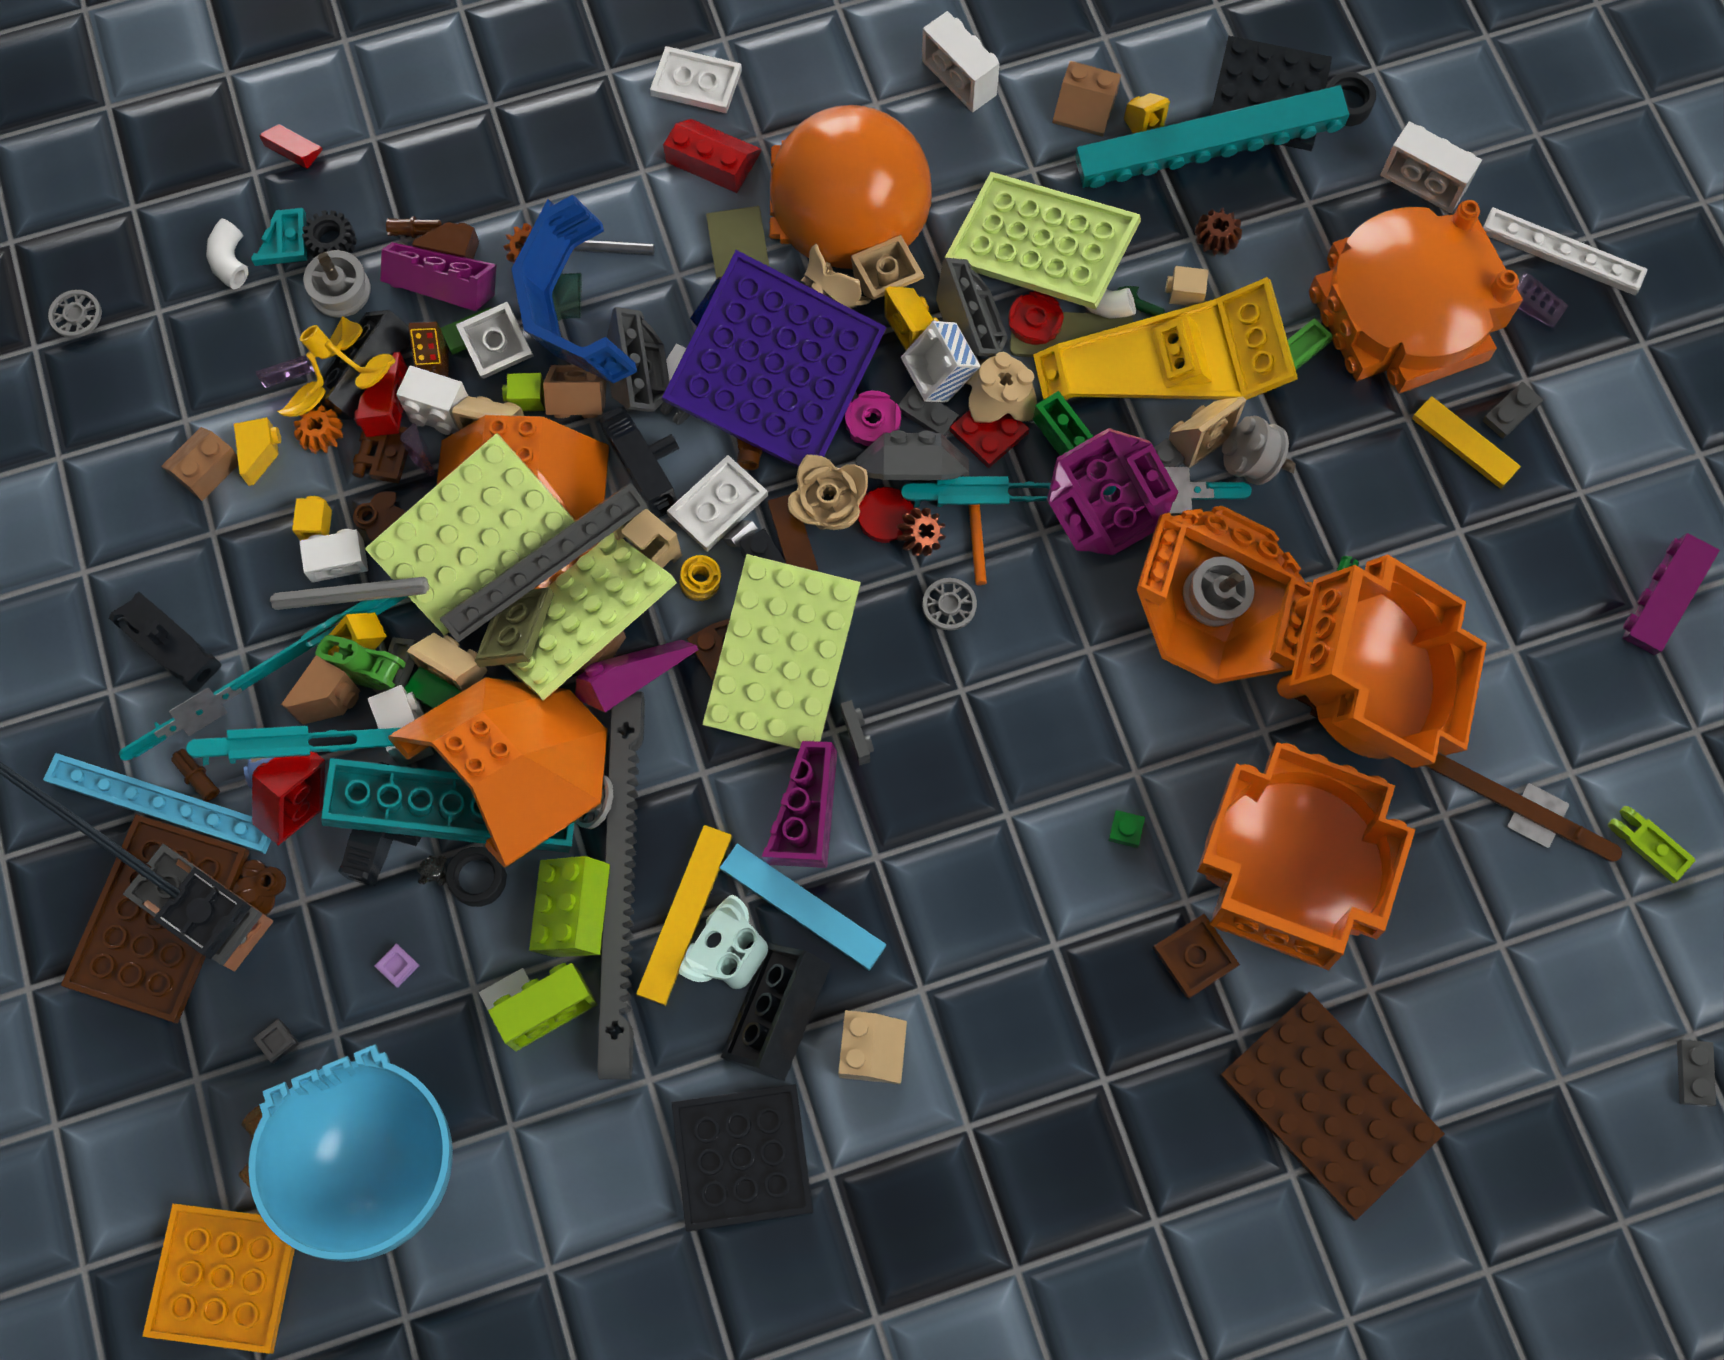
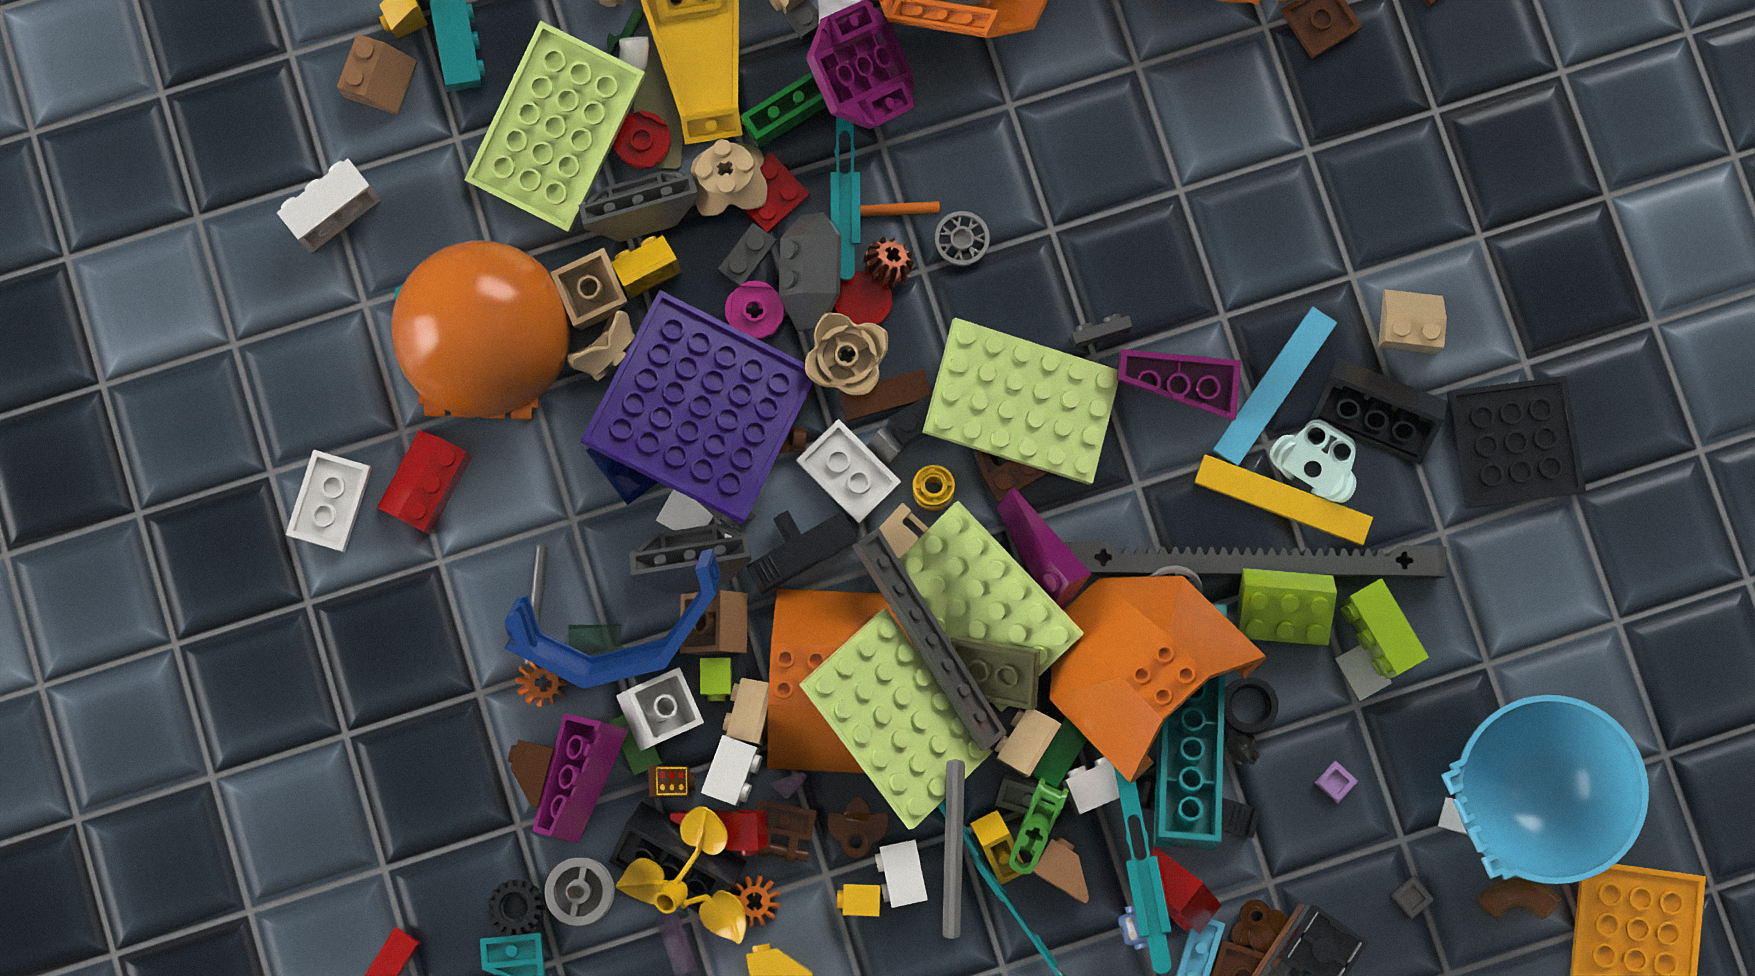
camera: 90 degrees left, 10 degrees up
(410, 227) = (506, 812): reddish brown axle -> none
(739, 231) = (542, 453): olive tile -> none
(940, 361) = (701, 235): white container -> none
(1126, 829) = (1196, 77): green plate -> none

